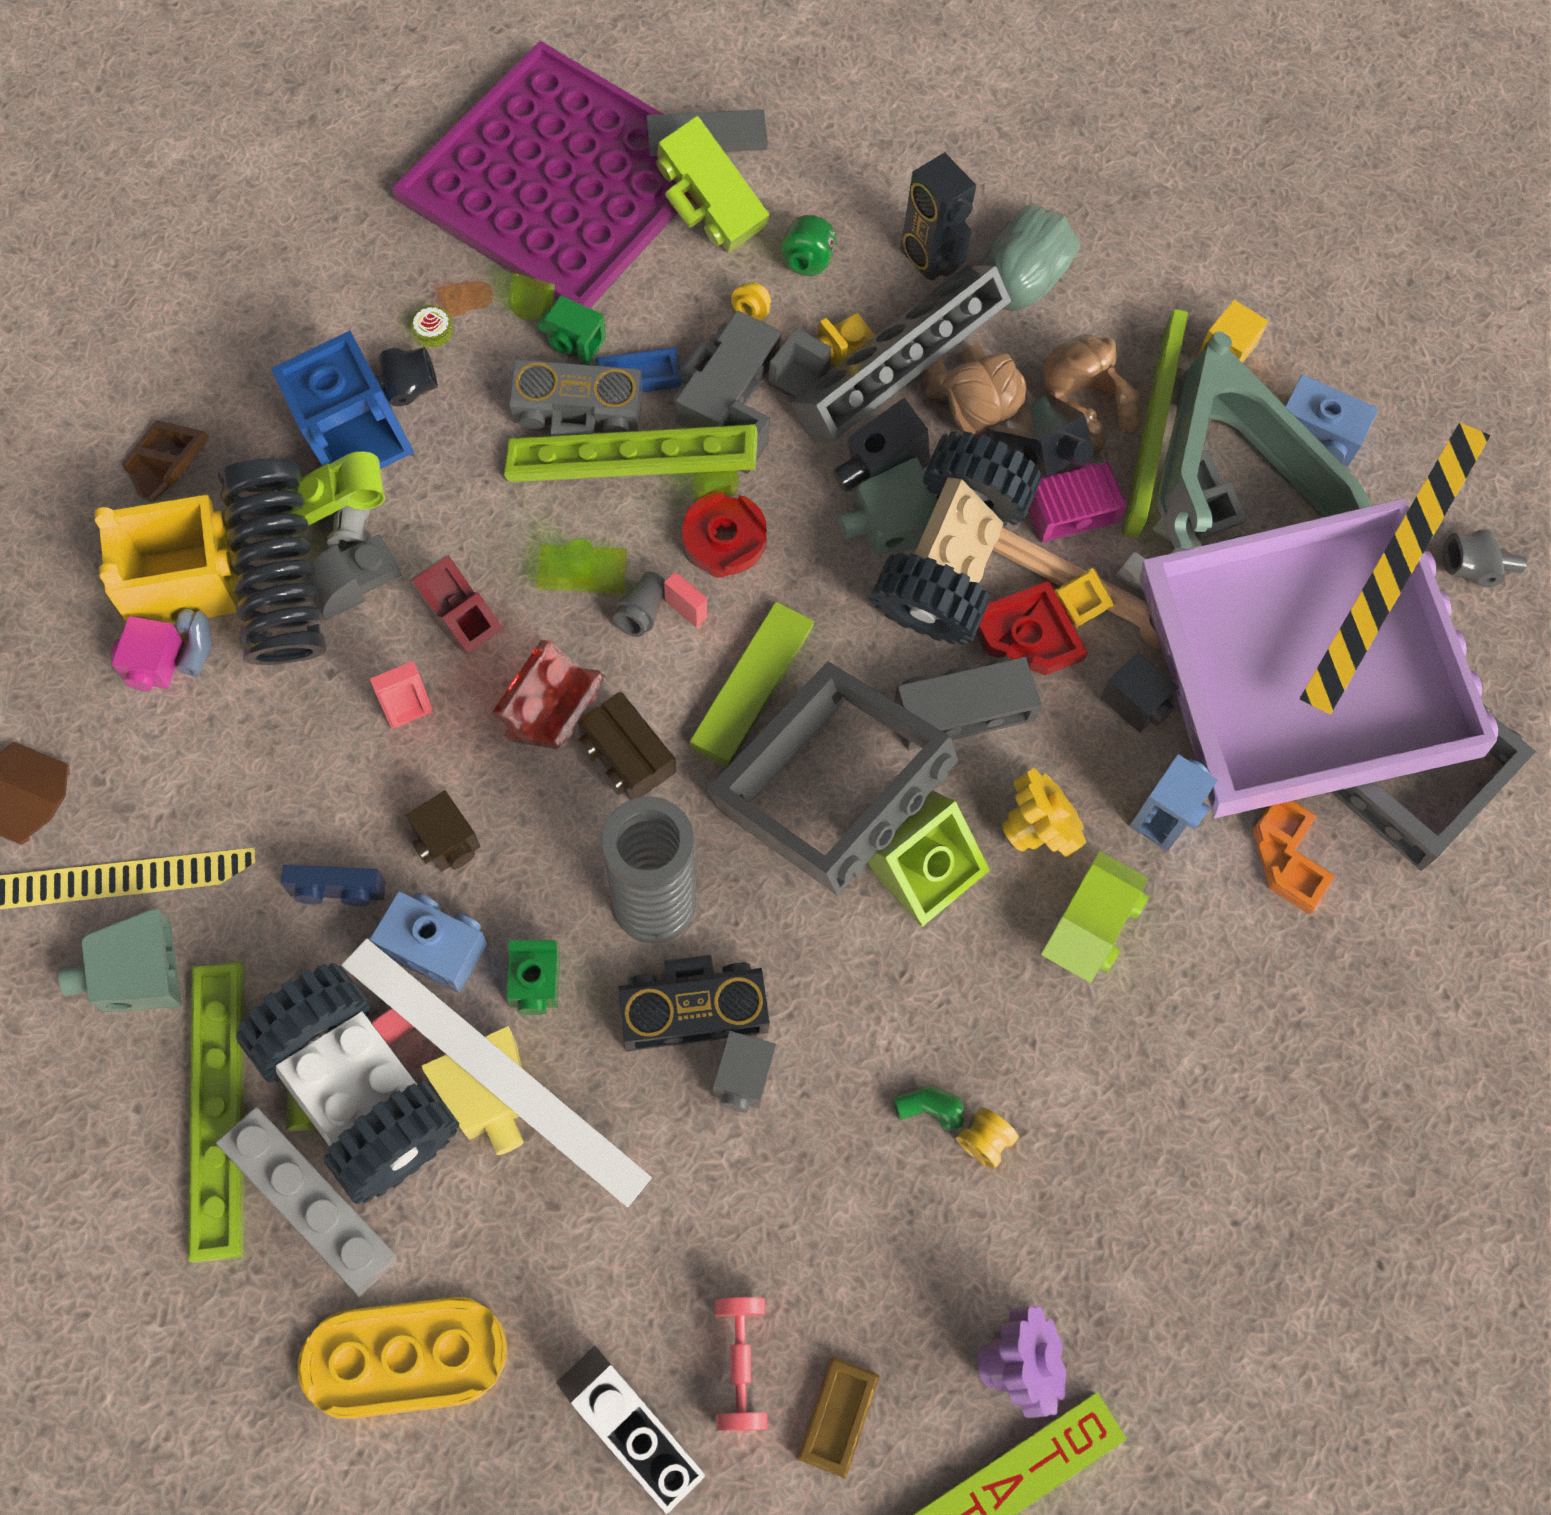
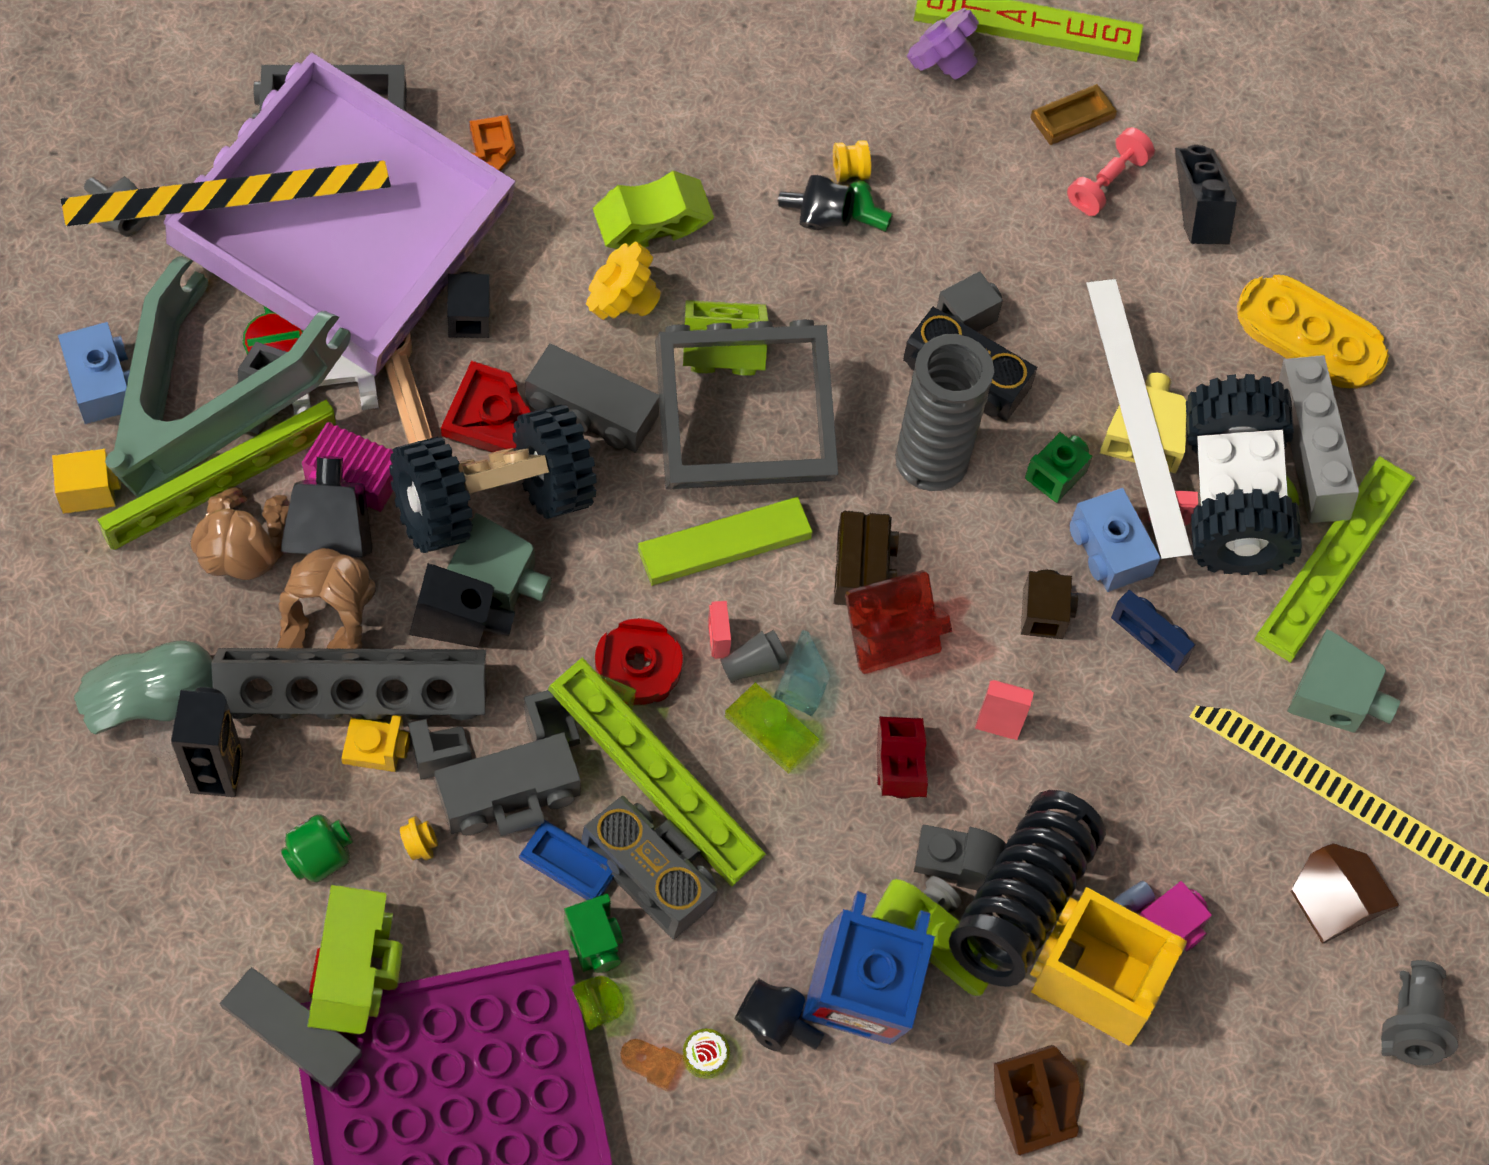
camera: 140 degrees left, 5 degrees down
(591, 620) = (803, 677): none -> clear light blue tile
(968, 1064) = (822, 203): none -> black piece
(1085, 597) = (427, 397): yellow tile -> none
(1175, 802) = (532, 219): medium blue brick -> none

